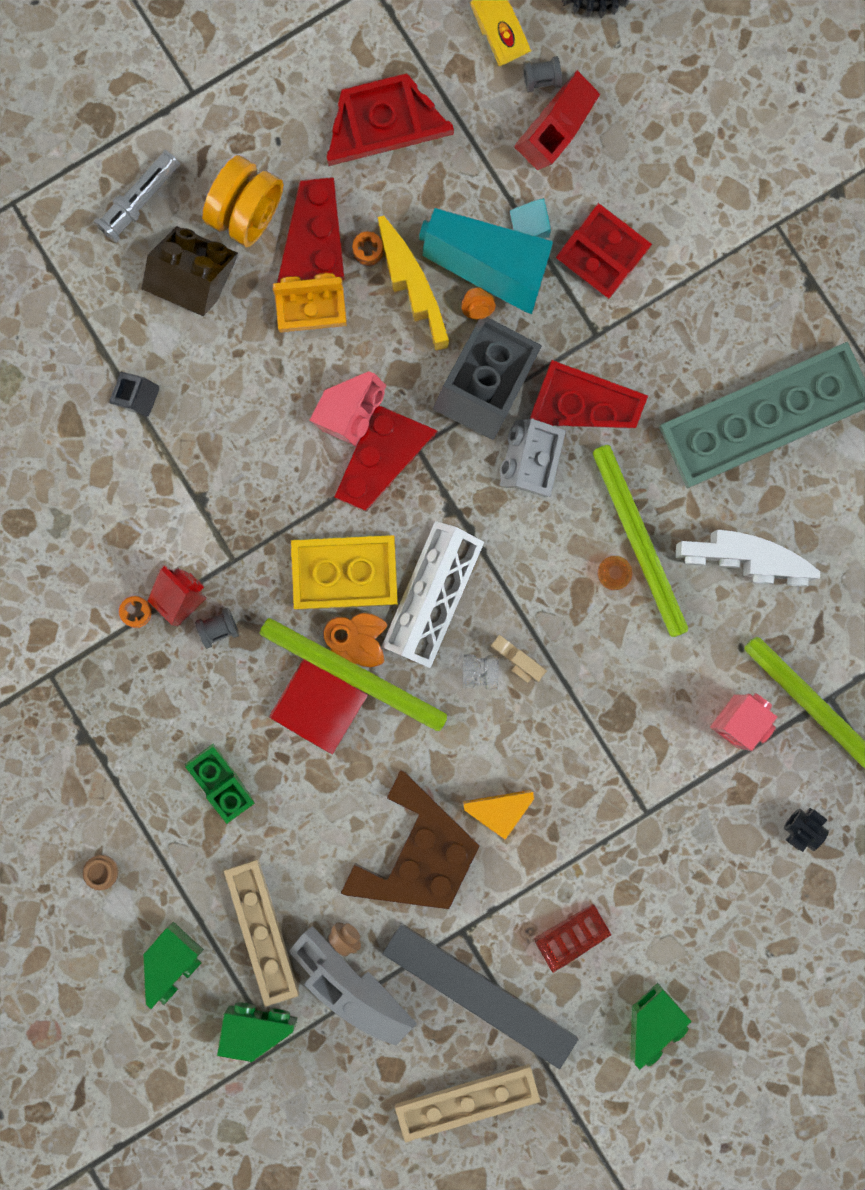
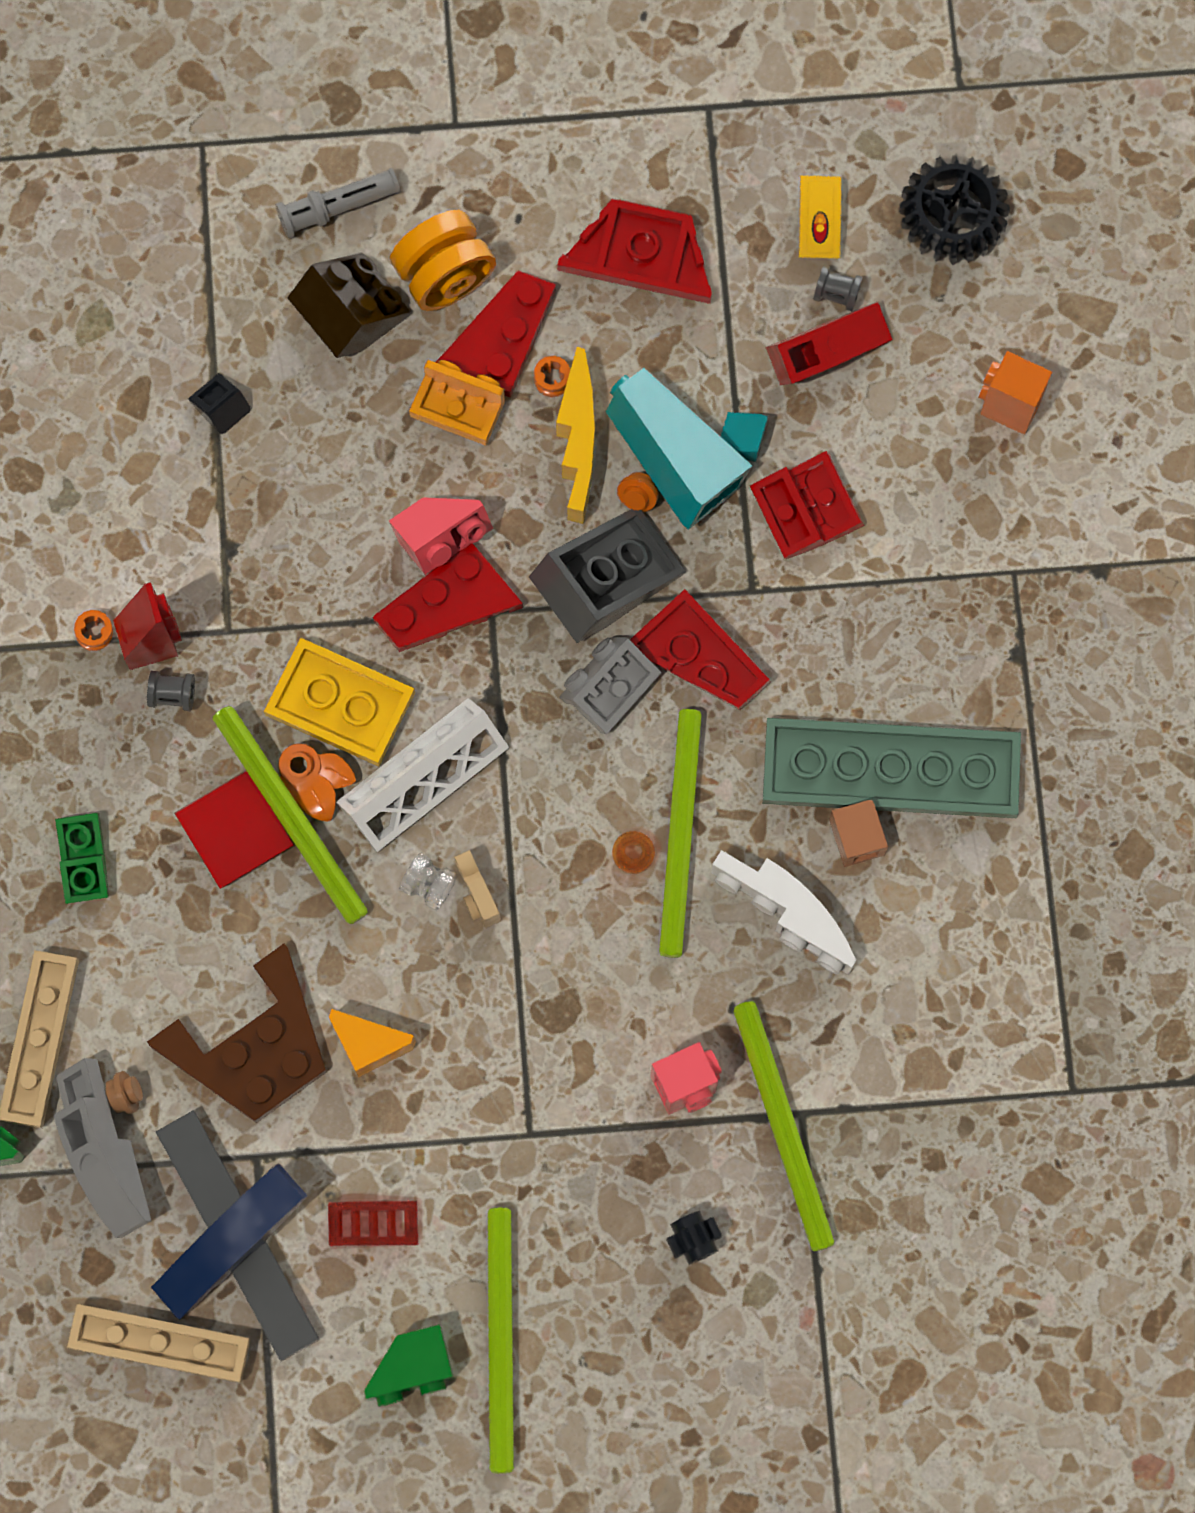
camera: 25 degrees right, 10 degrees down
(481, 1008) = (229, 1241): none -> dark blue slope
(706, 972) = (500, 1341): none -> lime axle
(717, 87) = (1013, 391): none -> orange brick
(769, 476) = (858, 833): none -> nougat panel

